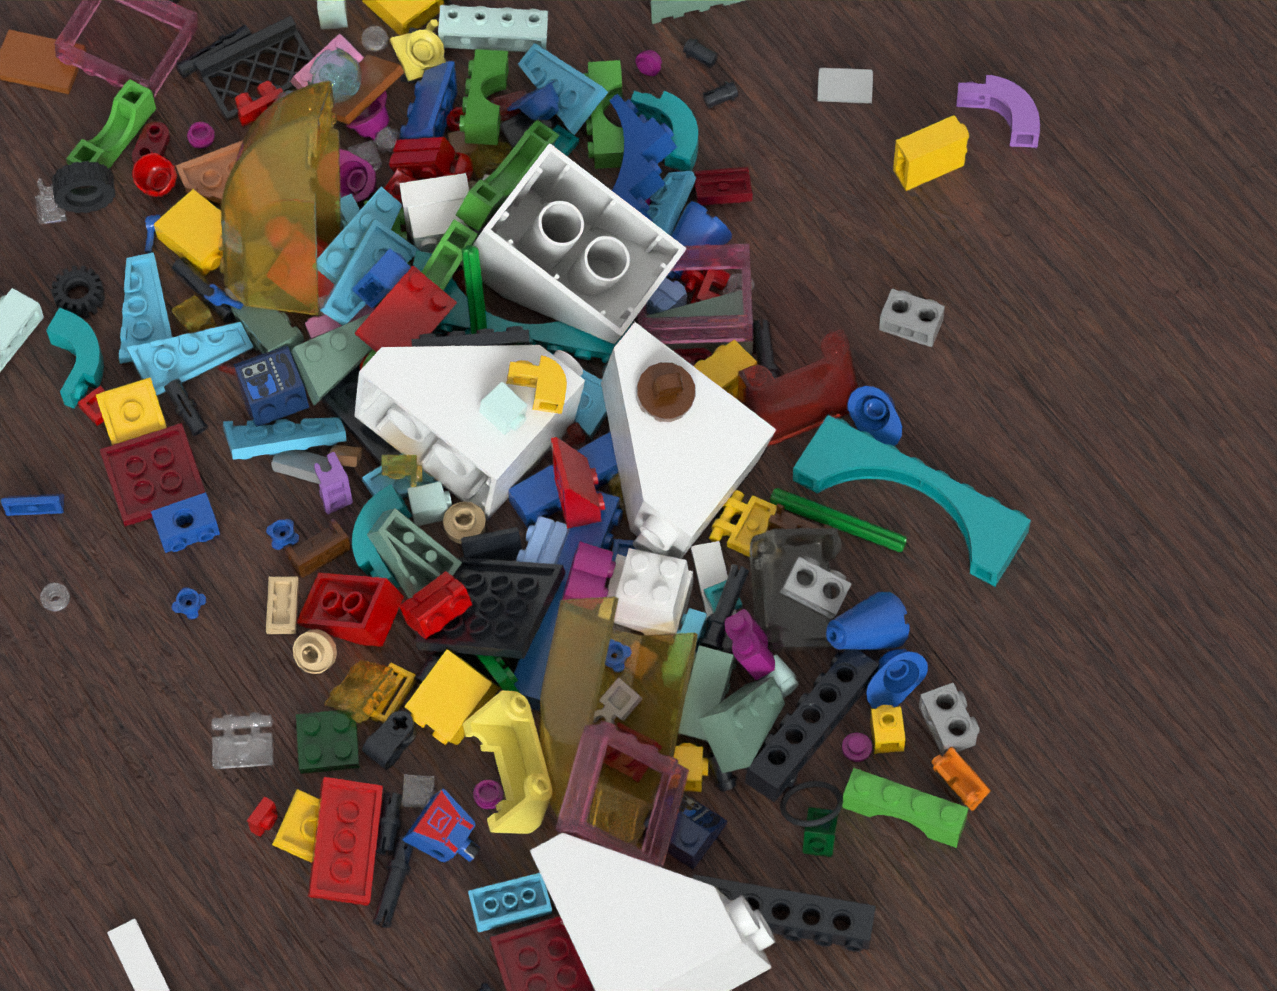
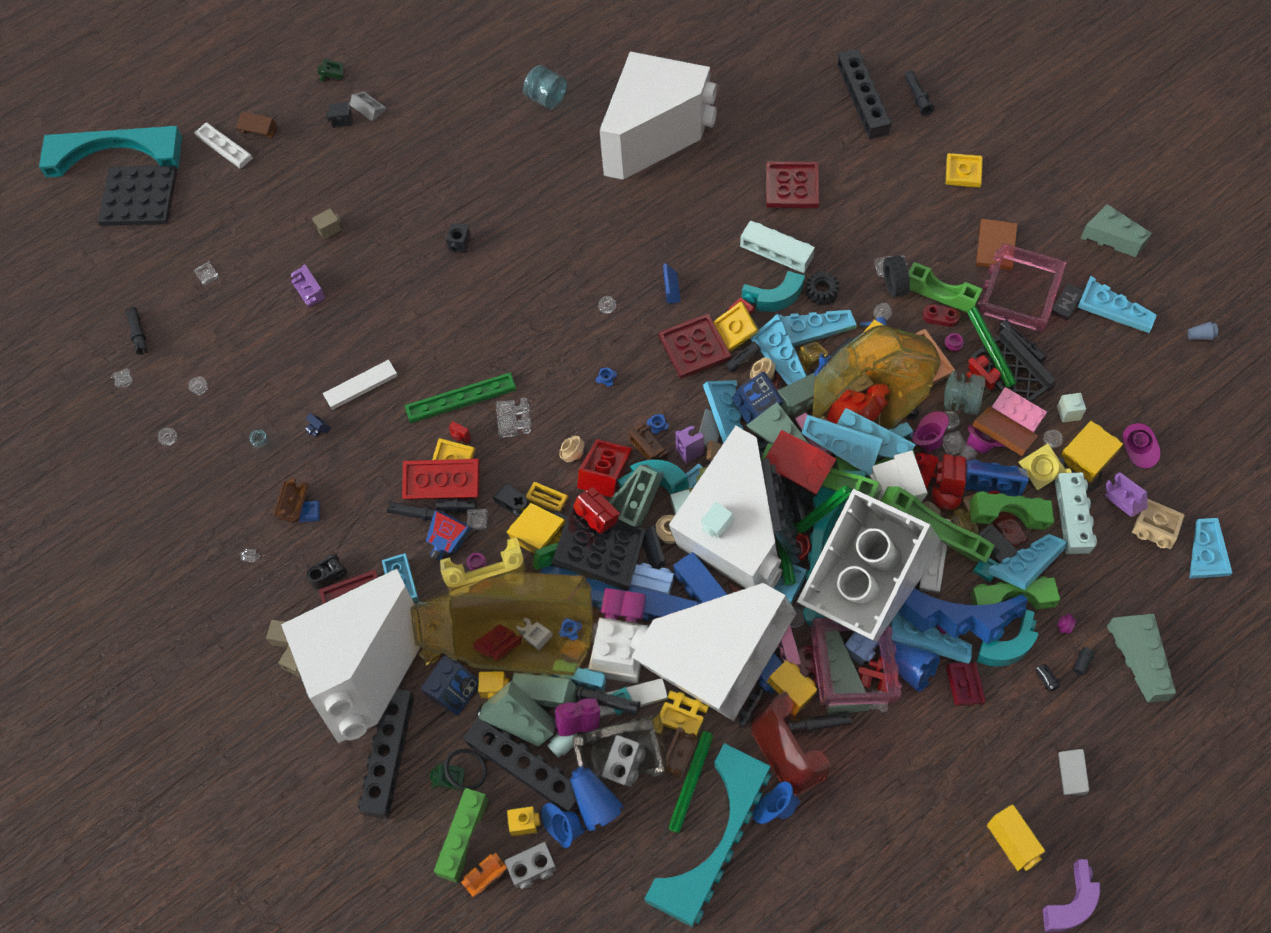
camera: 90 degrees right, 0 degrees up
(131, 213) = (882, 307): none -> clear plate
(154, 175) = (915, 317): red hair -> none
(191, 510) = (659, 357): blue brick -> none
(194, 822) = (460, 397): none -> green tile
(215, 382) = (764, 364): none -> tan plate
(220, 86) = (991, 347): none -> green axle
(282, 605) = (606, 428): tan plate -> none
(327, 741) = (513, 465): dark green plate -> none
(339, 69) = (1006, 409): clear light blue cylinder -> none
(358, 687) = (545, 479): clear yellow hinge -> none
(381, 278) = (832, 444): blue brick -> none
(538, 104) = (1008, 543): blue piece -> none
(547, 380) = (740, 548): yellow brick -> none
(576, 485) = (686, 584): red slope -> none
(584, 781) = (408, 627): clear pink window -> none
(665, 391) = (733, 623): reddish brown tile -> none
(856, 747) = (511, 800): magenta plate -> none
(909, 324) = (862, 828): light grey brick -> none

